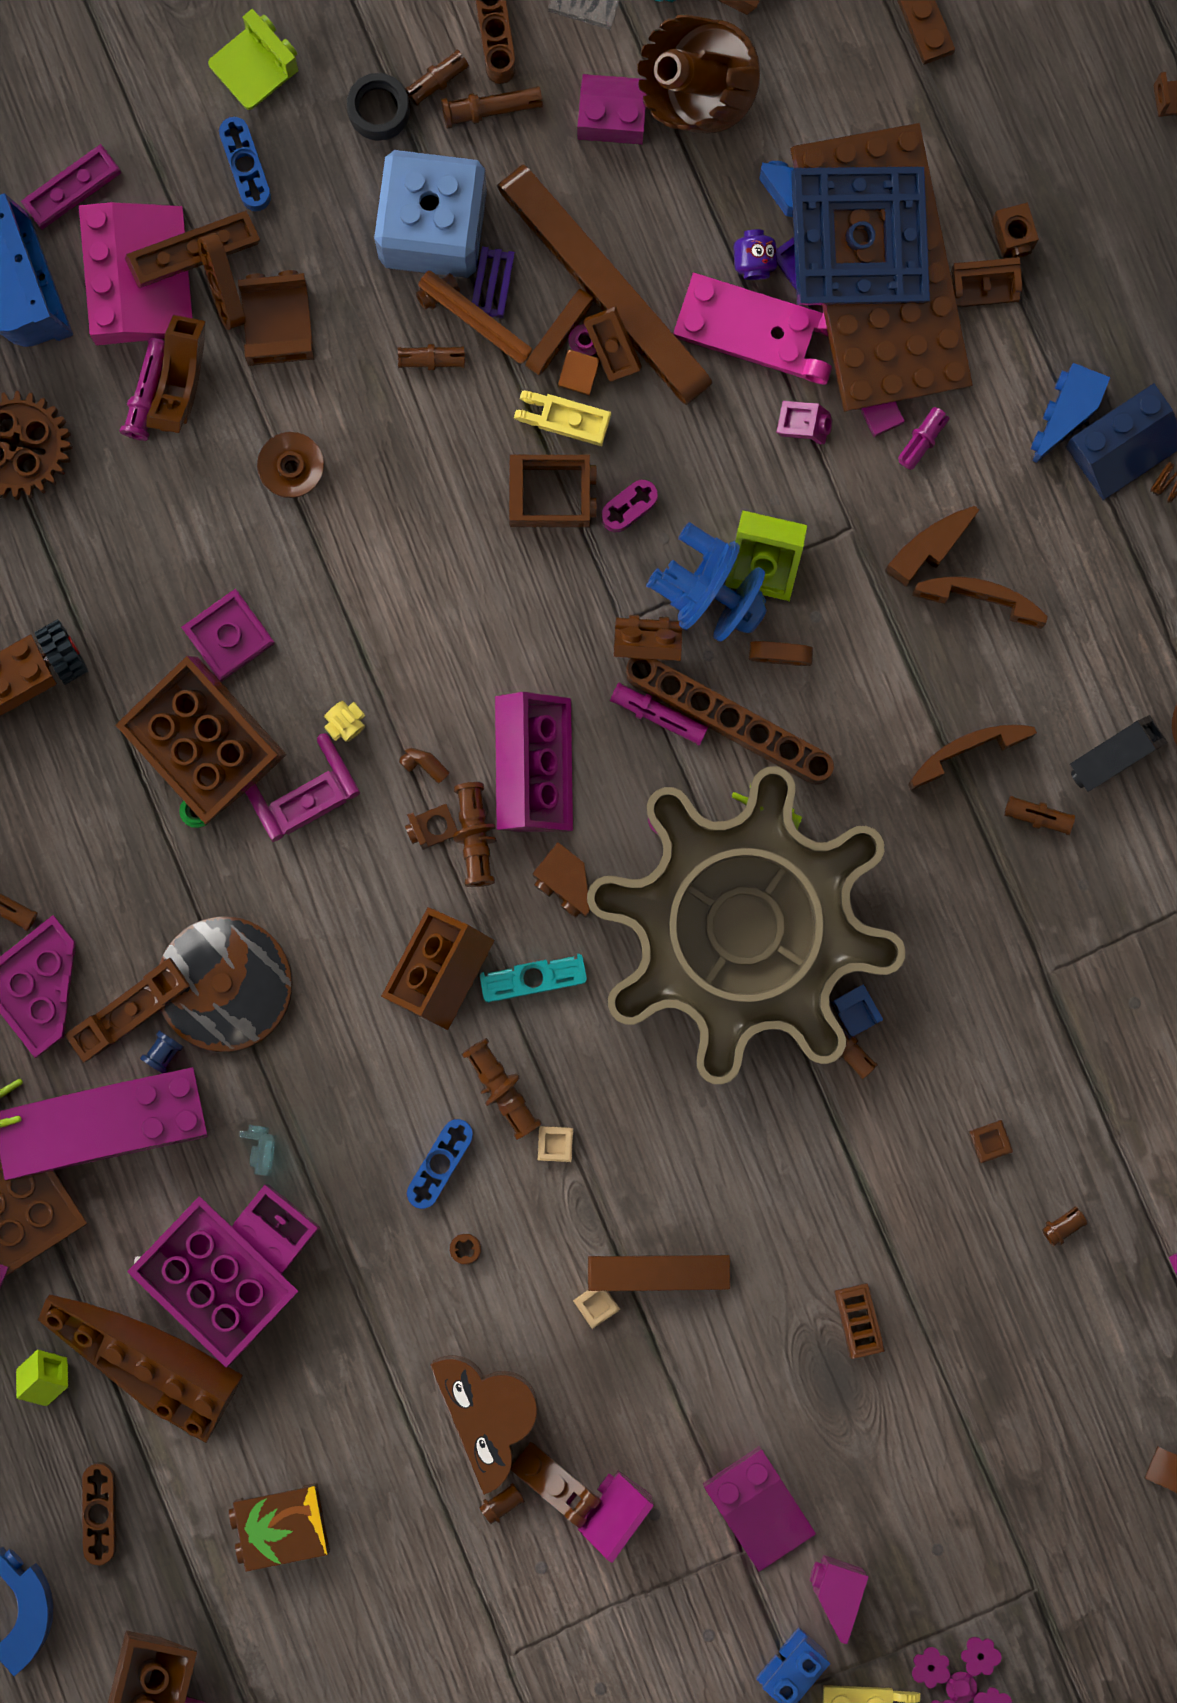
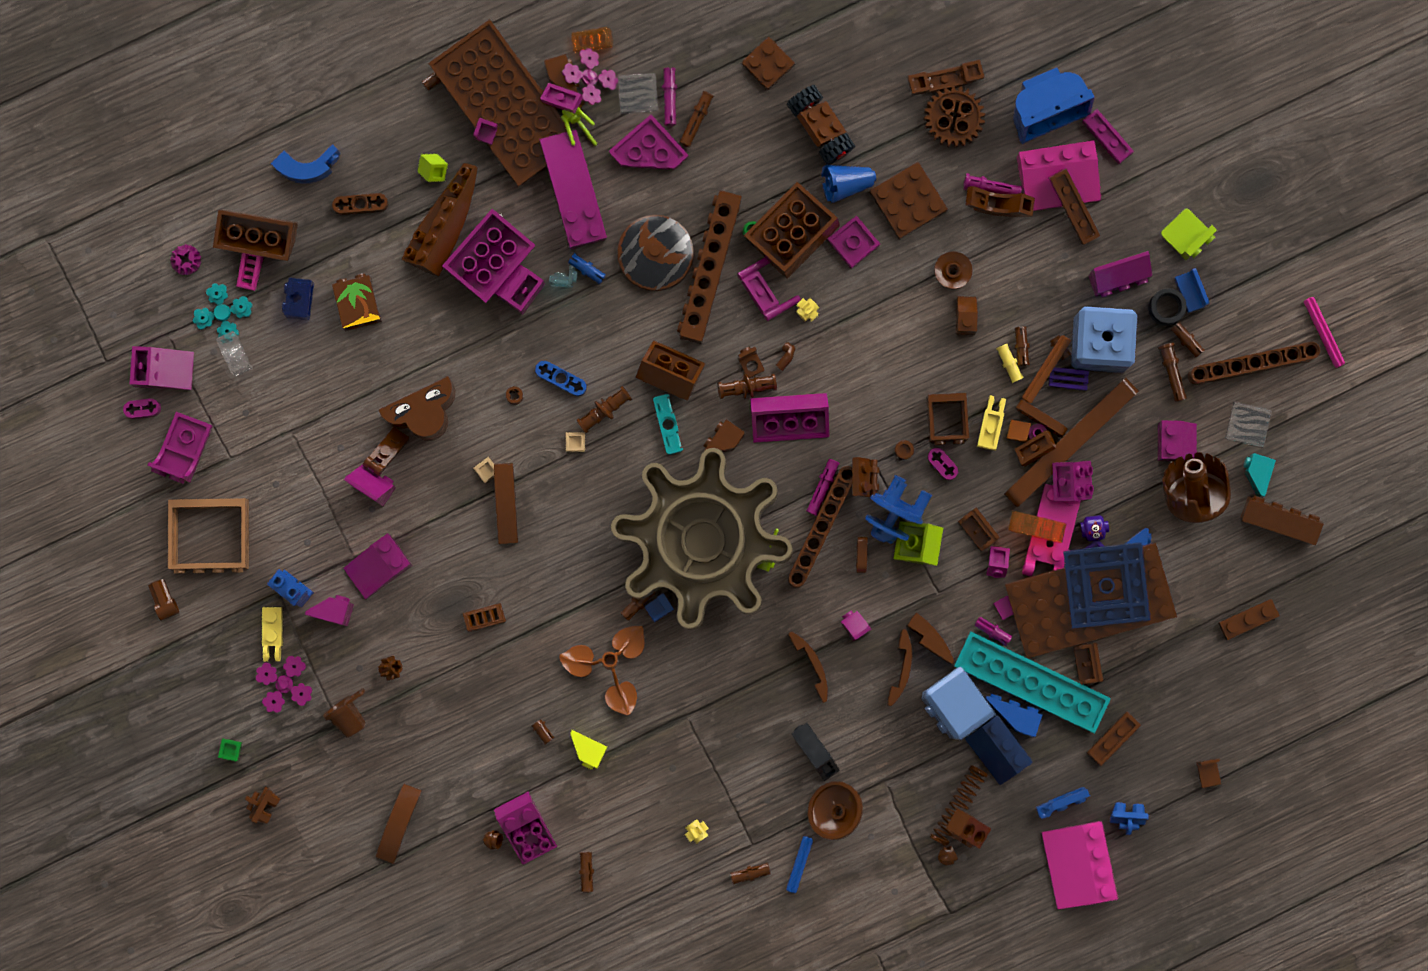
camera: 90 degrees right, 0 degrees up
(120, 640) = (846, 181): none -> blue cone
(128, 1010) = (637, 200): reddish brown slope -> none
(146, 842) = (727, 201): none -> reddish brown brick
(160, 535) = (908, 200): none -> reddish brown plate
(161, 1052) = (615, 220): dark blue bush -> none
(221, 281) = (1056, 223): reddish brown beam -> none
(229, 145) = (1139, 223): blue beam -> none
(245, 1107) = (587, 268): none -> blue pin
(251, 1621) = (301, 309): none -> clear blue brick
(276, 318) = (1038, 257): reddish brown panel -> none
(319, 178) = (1121, 274): none -> magenta slope
(350, 60) = (1192, 290): none -> blue panel
(371, 447) = (966, 315): none -> reddish brown slope
(459, 379) = (1009, 363): none -> light yellow pin
(501, 1504) = (374, 423): reddish brown pin -> none
(600, 570) = (904, 450): none -> reddish brown tile
(674, 285) = (1072, 481): none -> magenta bracket
(746, 451) = (978, 529): none -> reddish brown hinge
(749, 350) = (1037, 527): none -> clear orange beam
(905, 670) = (855, 625): none -> magenta slope
(916, 1064) = (628, 642): none -> dark orange plant
(943, 1493) = (390, 668): none -> reddish brown gear
(990, 1141) = (589, 688): reddish brown tile -> none
(1013, 379) = (1032, 682): none -> teal plate
(1018, 217) = (1127, 675): reddish brown brick -> none
(1024, 1576) = (346, 716): none -> reddish brown container
(1053, 503) = (956, 704): none -> medium blue plate
(1059, 820) = (779, 694): reddish brown pin -> none
(1100, 1146) = (588, 750): none -> neon yellow slope
(1114, 250) = (1113, 739): none -> reddish brown tile

